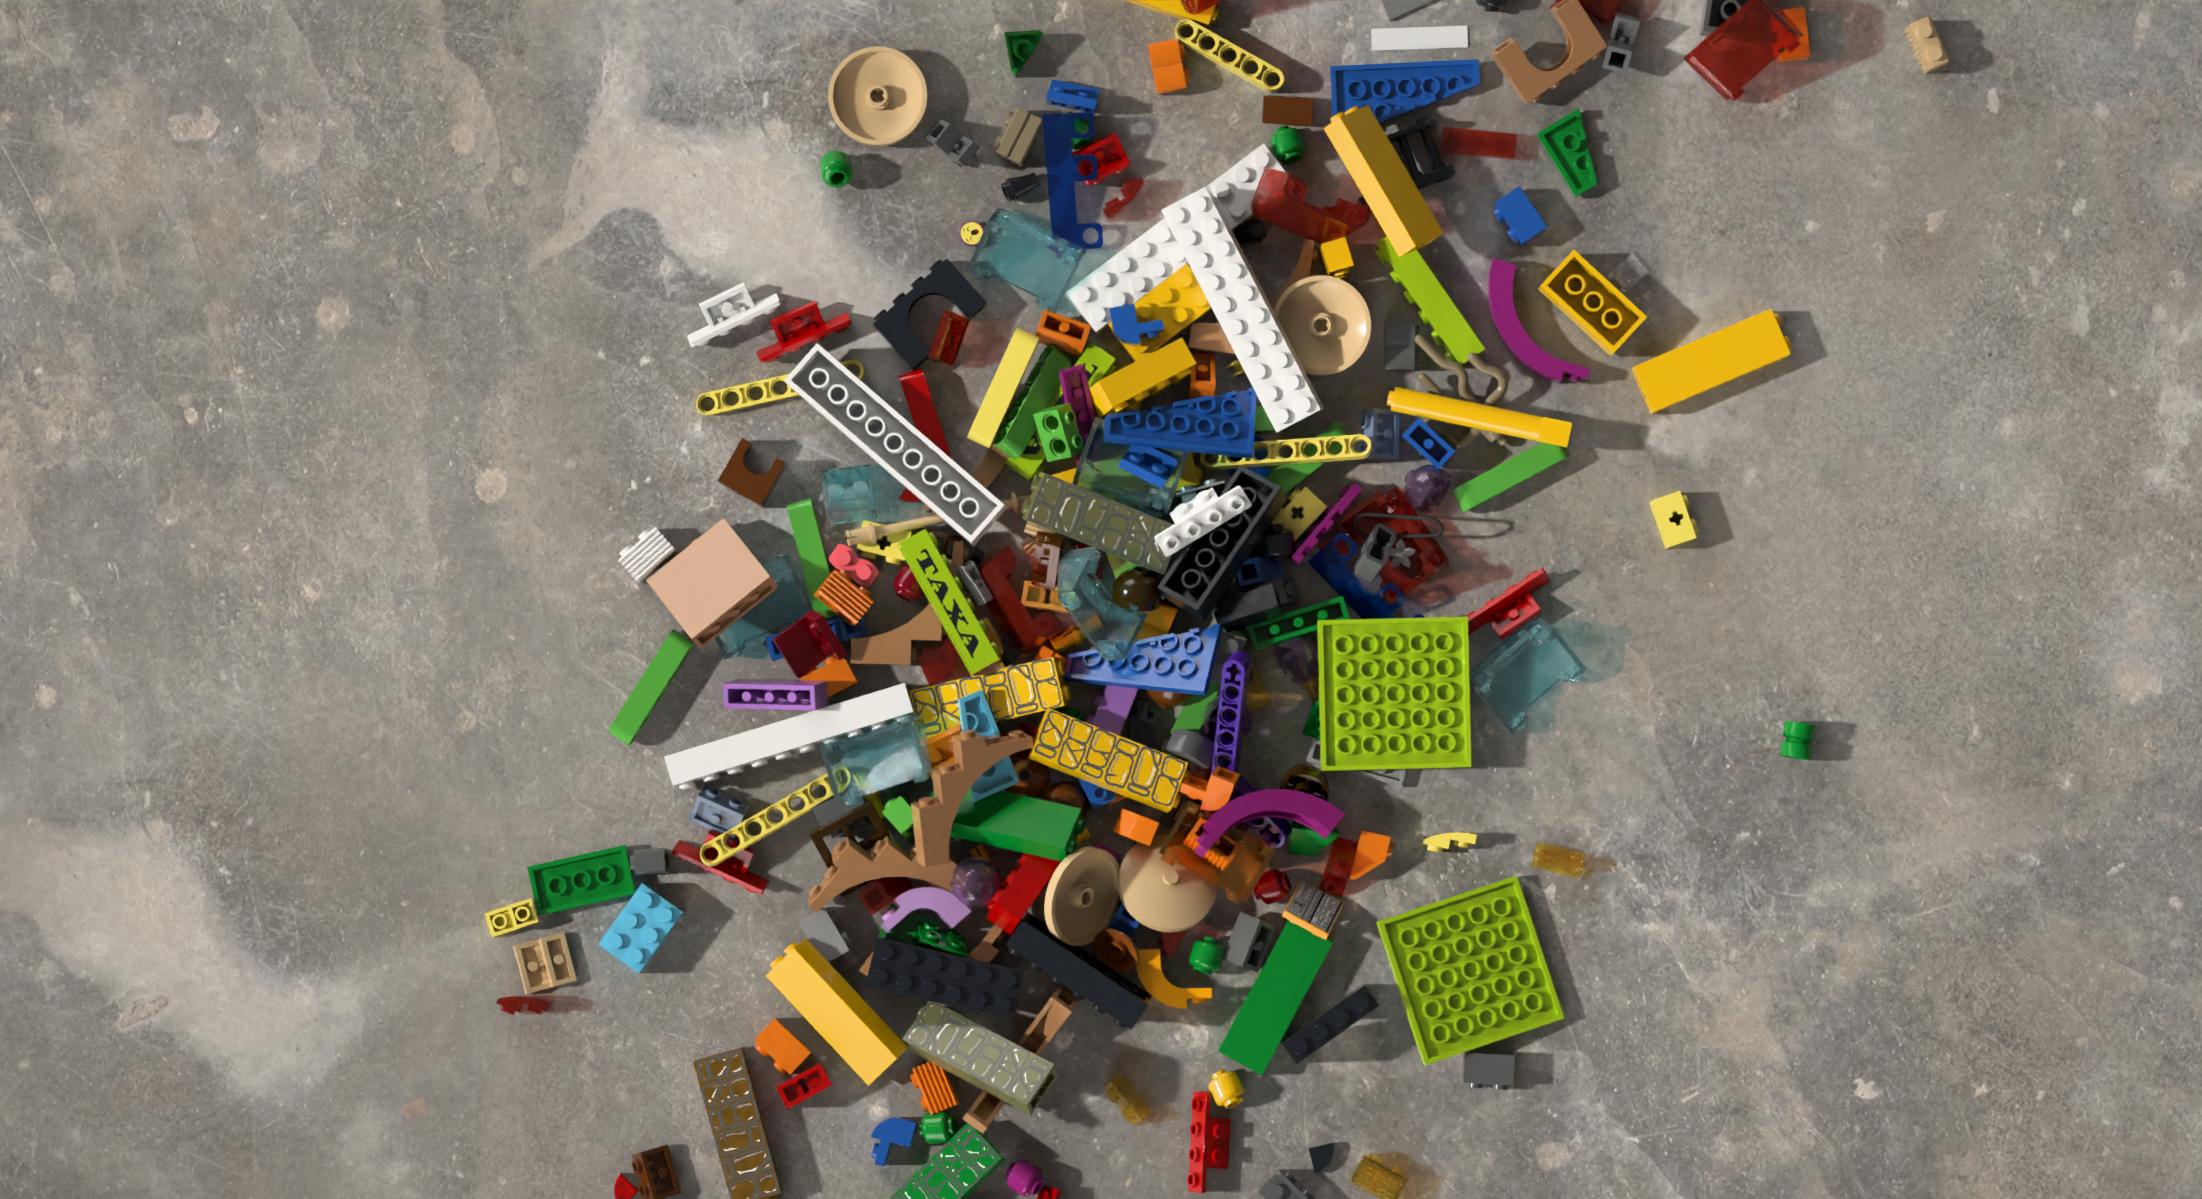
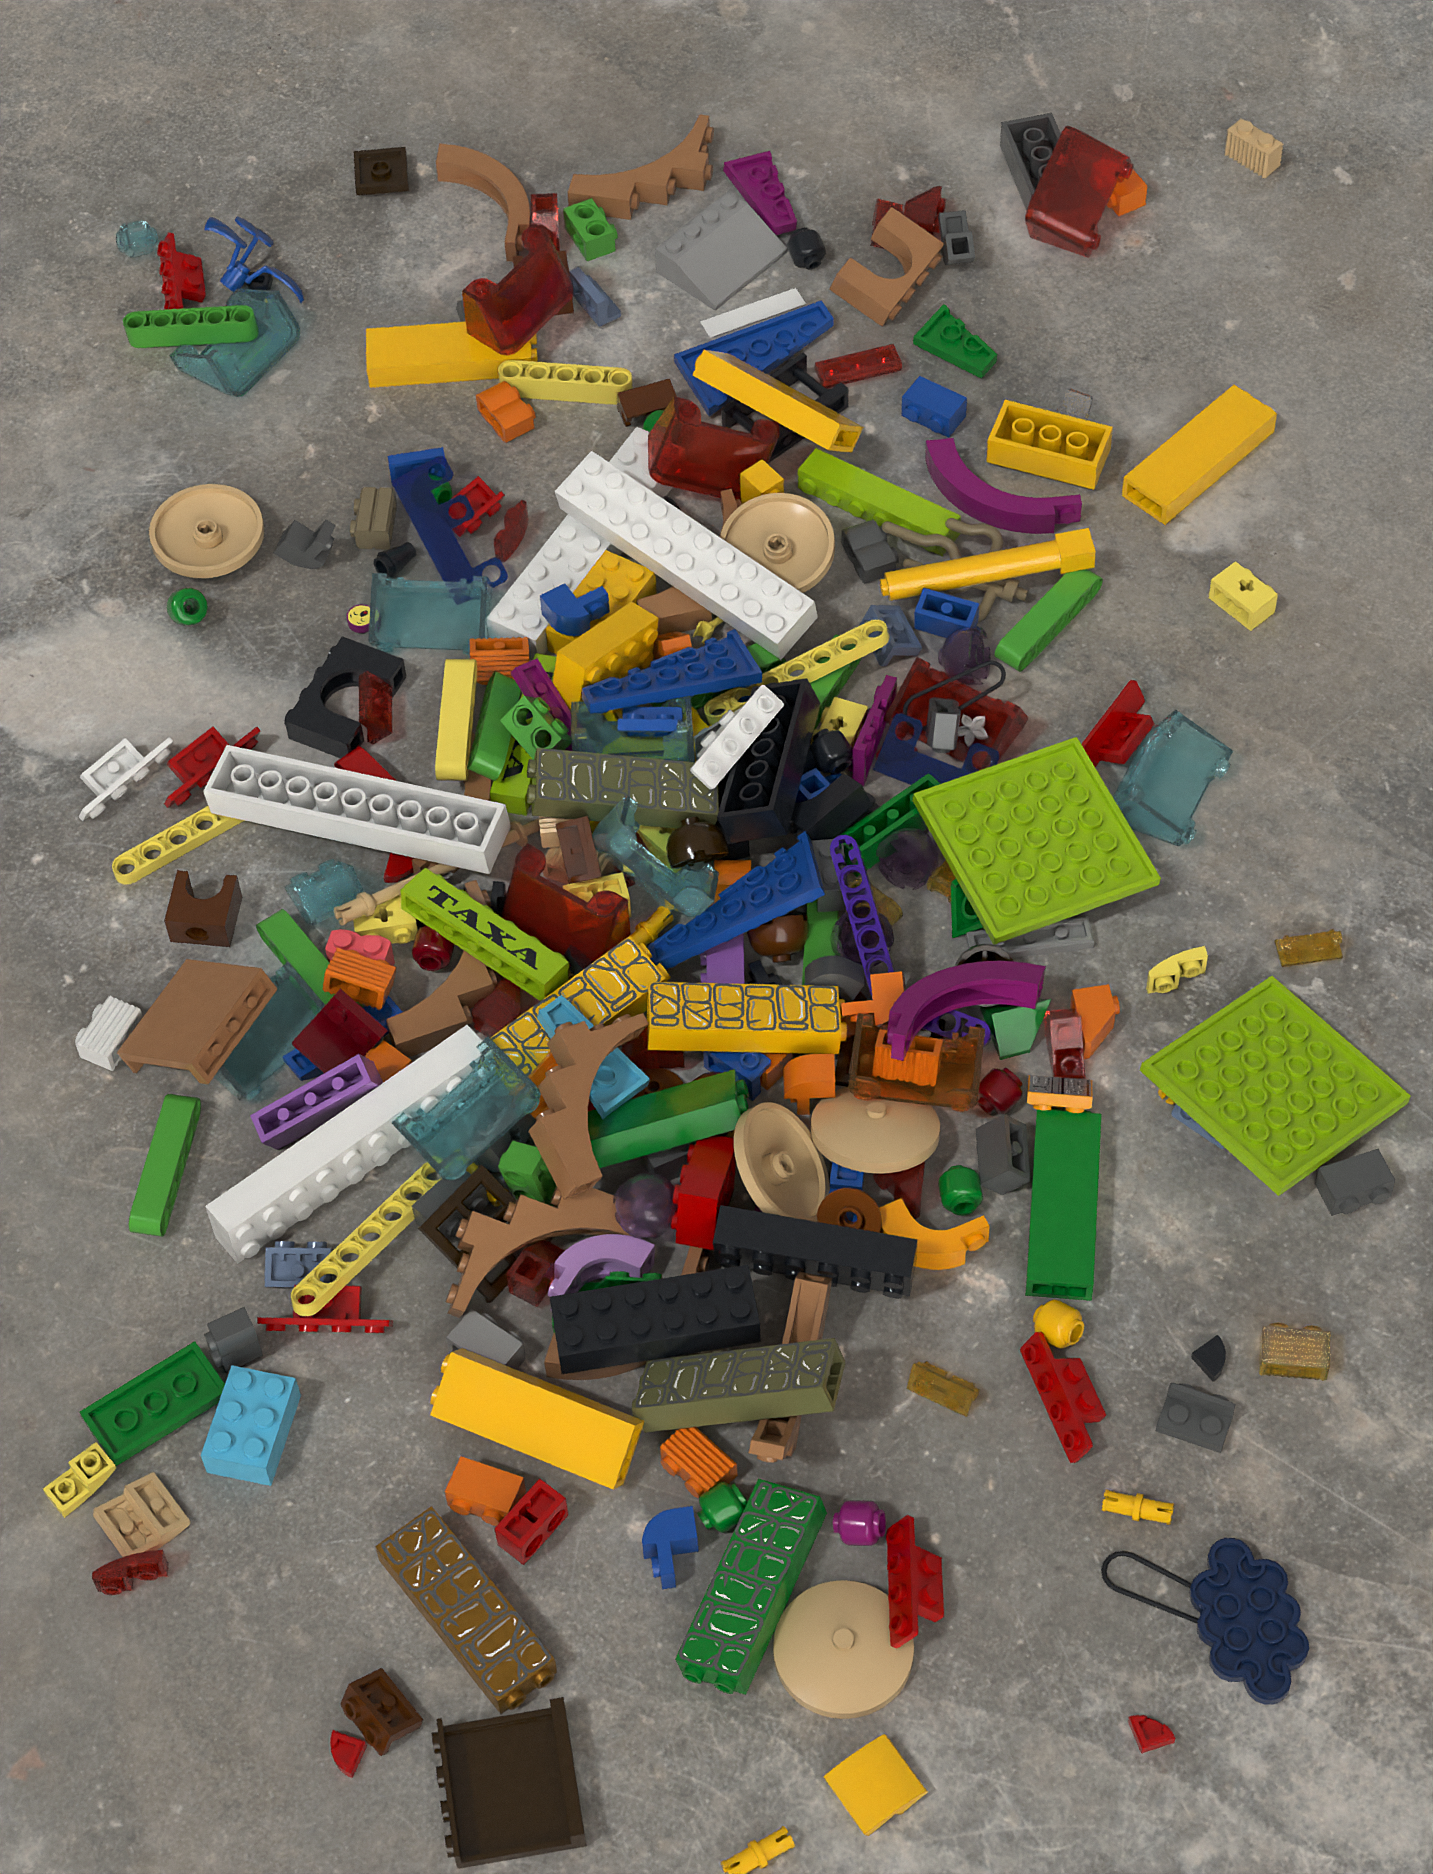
camera: 20 degrees left, 30 degrees down
(972, 580) = (508, 910): light grey bar -> none
(1020, 47) = (341, 442): green slope -> none
(1330, 1024) = (1155, 1172): black arch -> none

